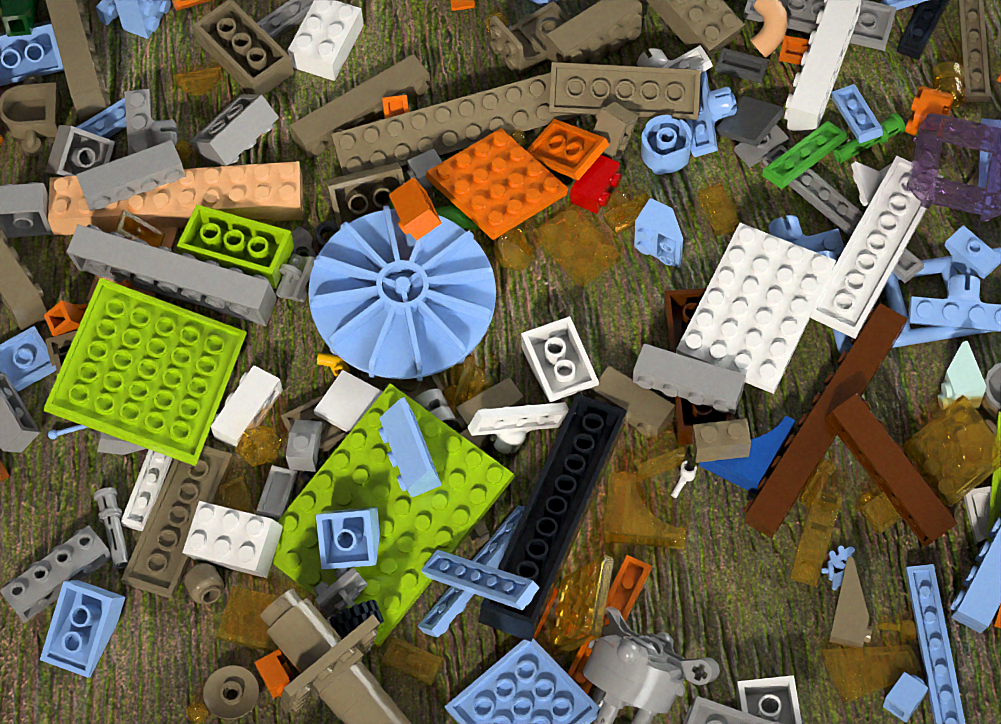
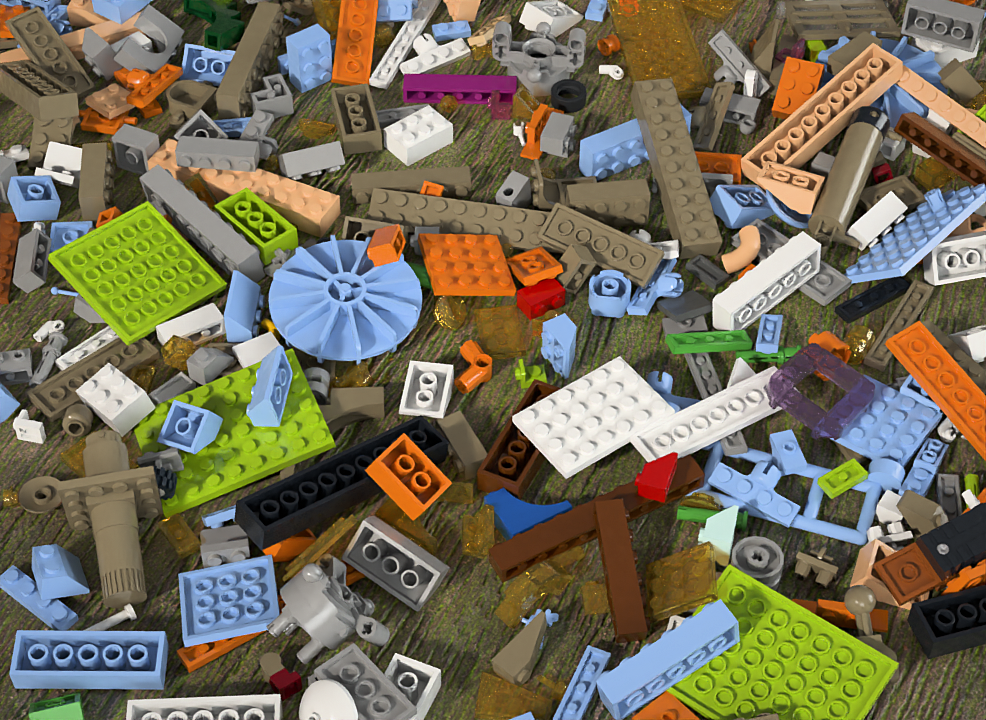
camera: 25 degrees right, 15 degrees down
(84, 485) = (47, 328): none -> white arm
(131, 64) = (274, 98): none -> light grey brick
(157, 623) = (29, 429): none -> white bracket
(292, 358) = (243, 309): none -> light blue slope
(469, 648) = (224, 545): none -> light grey bracket
(480, 579) = (249, 485): light blue plate -> none
(486, 66) = (515, 191): none -> light grey torso
(511, 424) = (360, 413): white plate -> none
(578, 293) = (479, 367): none -> orange piece
(625, 478) = (408, 476): none -> orange brick
(644, 282) = (527, 374): none -> lime bracket
(664, 577) = (395, 562): none -> light grey slope
(684, 477) = (469, 510): white hand -> none
(688, 379) = (507, 438): light grey brick -> none
(718, 209) = (622, 347): clear yellow plate -> none
(719, 497) = (478, 532): none -> clear yellow bracket
(721, 440) = (502, 489): dark tan brick -> none
(870, 350) = (657, 477): none -> red slope
(911, 349) = (700, 500): none -> clear yellow tile
(942, 354) = (701, 515): none -> bright green pin

